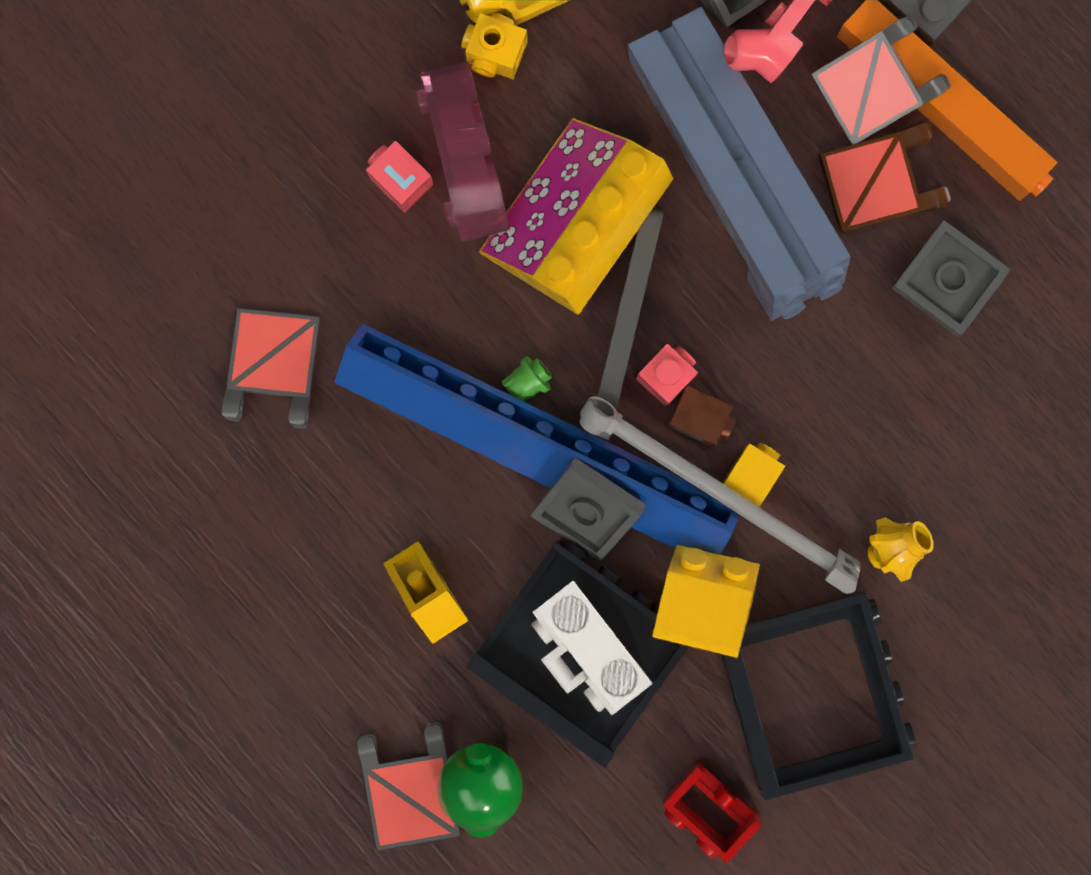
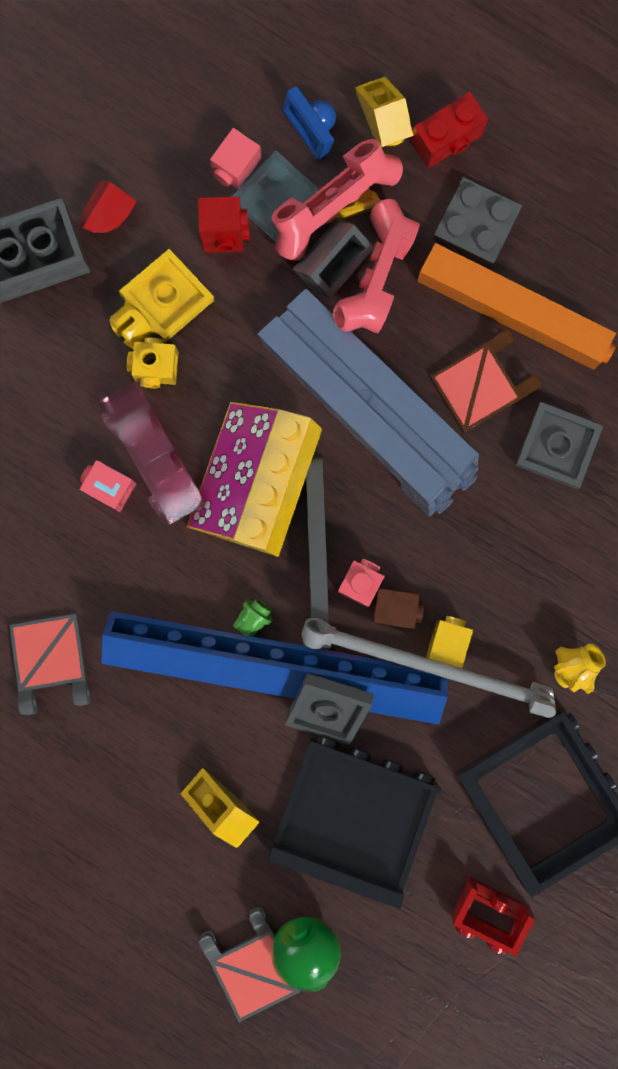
camera: 20 degrees left, 0 degrees up
(606, 664) = (376, 824): white piece -> none
(706, 600) = (442, 755): yellow slope -> none
(873, 86) = (455, 313): coral flag -> none

